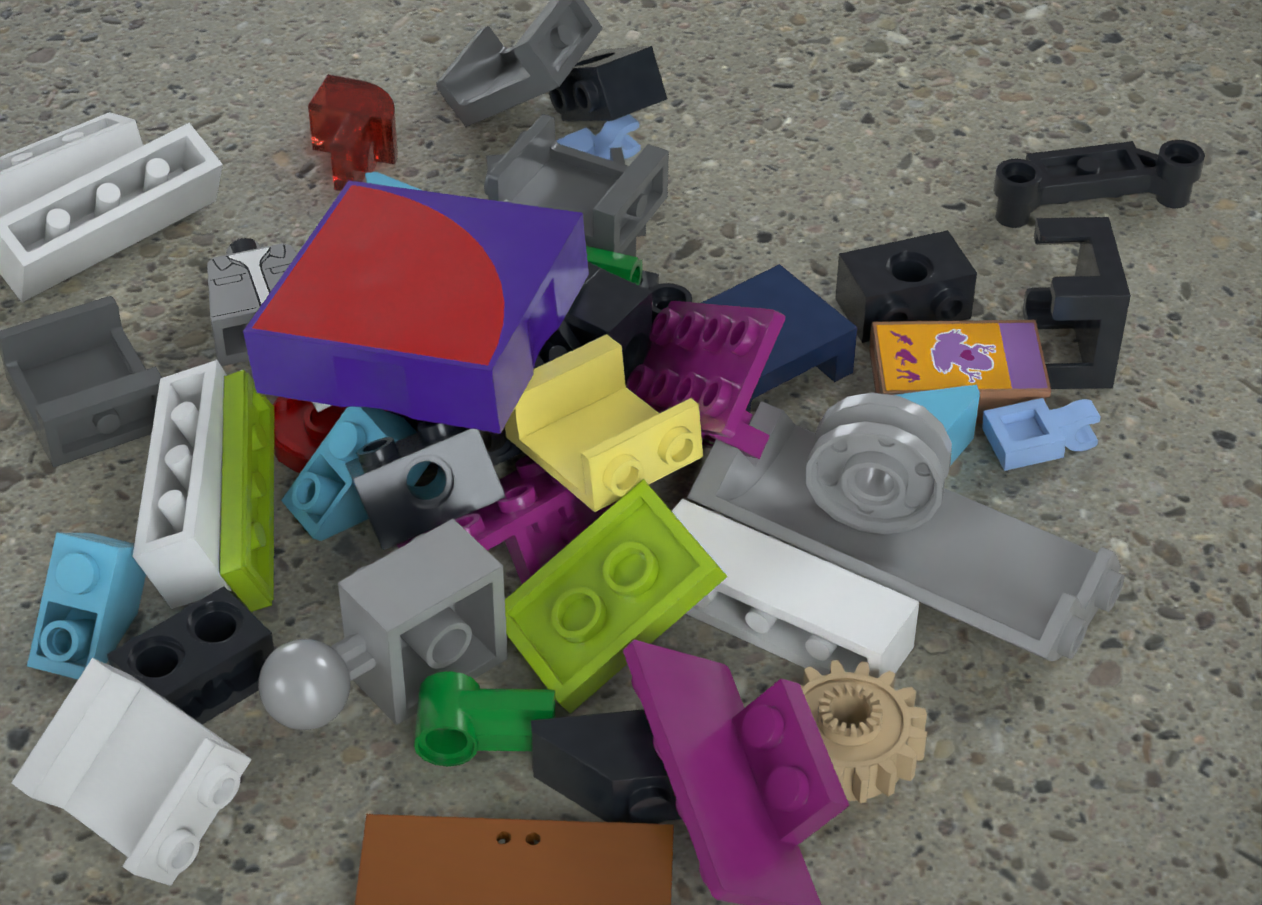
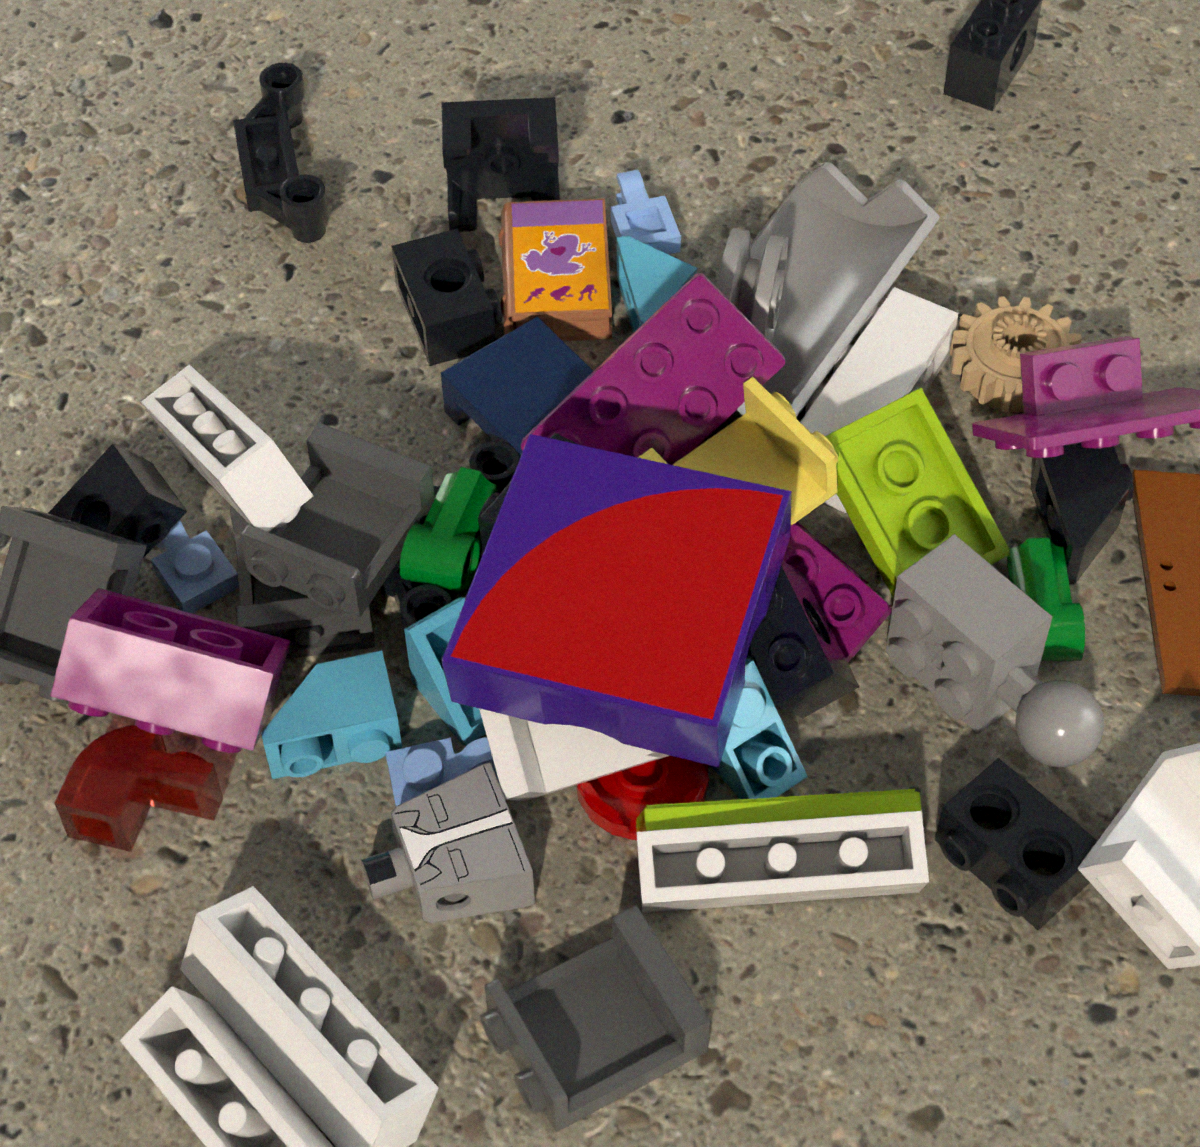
camera: 90 degrees left, 10 degrees up
(85, 602) = (944, 949): medium azure slope -> none
(431, 104) = (170, 670): none -> brick
(626, 112) = (228, 450): none -> white brick

